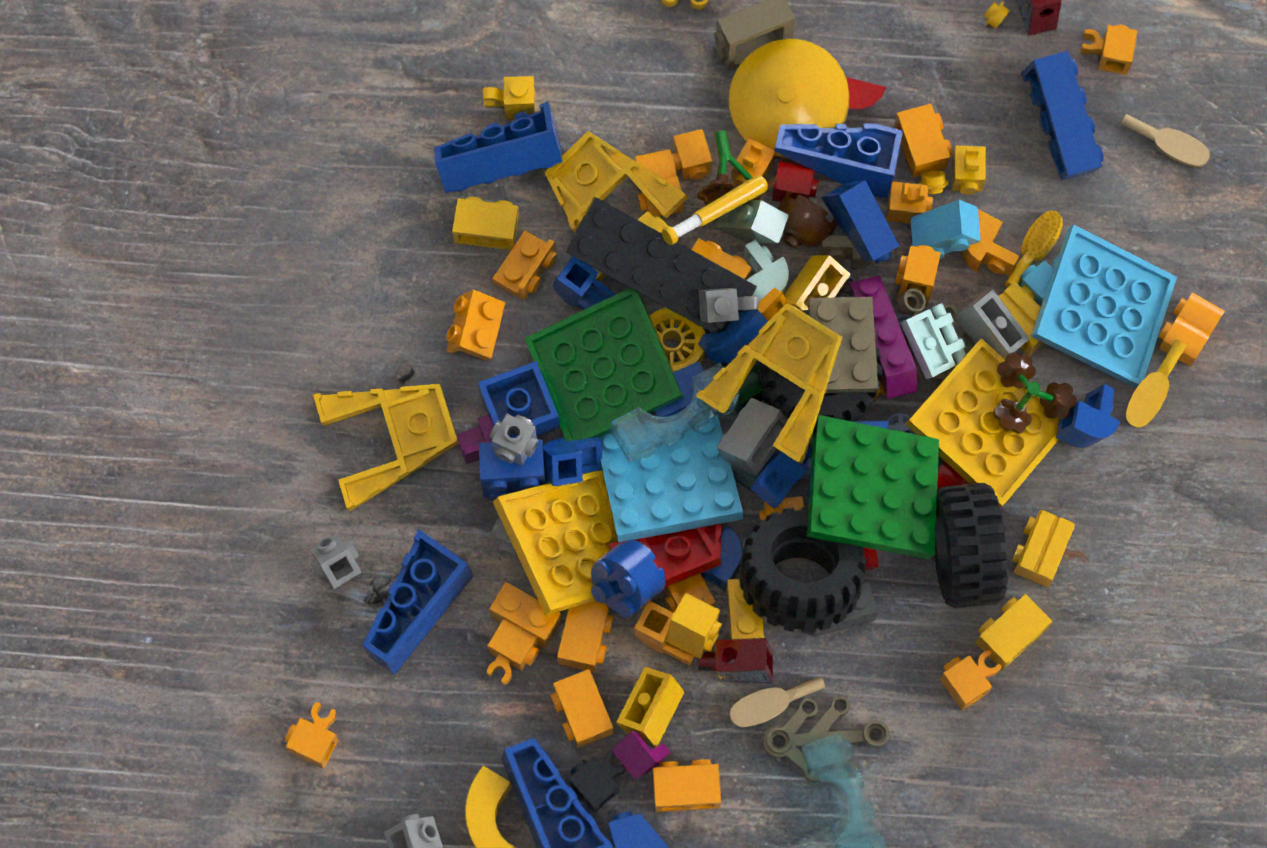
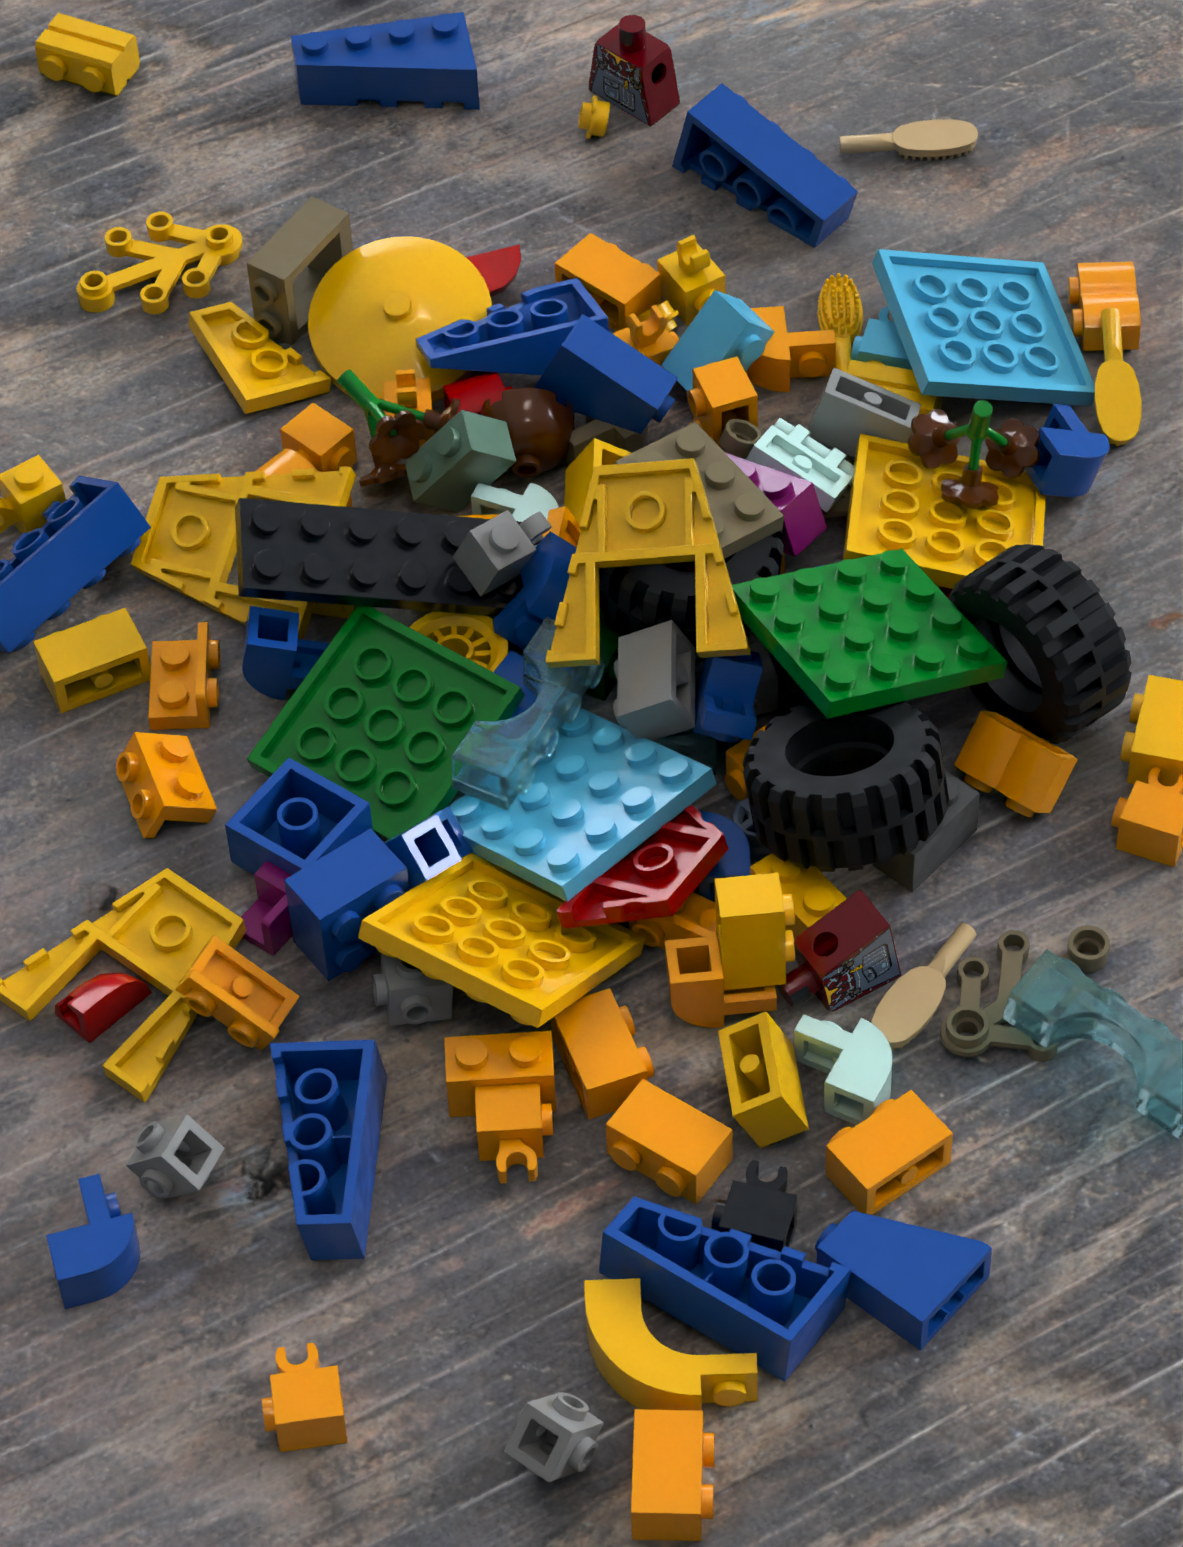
camera: 30 degrees left, 20 degrees down
(270, 591) = (98, 1256): none -> blue brick
(362, 439) = (100, 1003): none -> red brick
(425, 483) = (236, 994): none -> light orange bracket
(516, 448) = (335, 835): light grey brick -> none
(627, 578) = (617, 921): blue brick -> none
(637, 756) = (793, 1141): magenta panel -> none
(695, 73) = (250, 362): none -> yellow wing
(708, 731) = (856, 1065): none -> light aqua brick
(717, 208) = (416, 437): yellow piece -> none
(916, 600) = (1014, 763): none -> light orange brick
(1043, 548) = (1139, 617): yellow brick -> none
(1114, 49) = (770, 79): light orange brick -> none

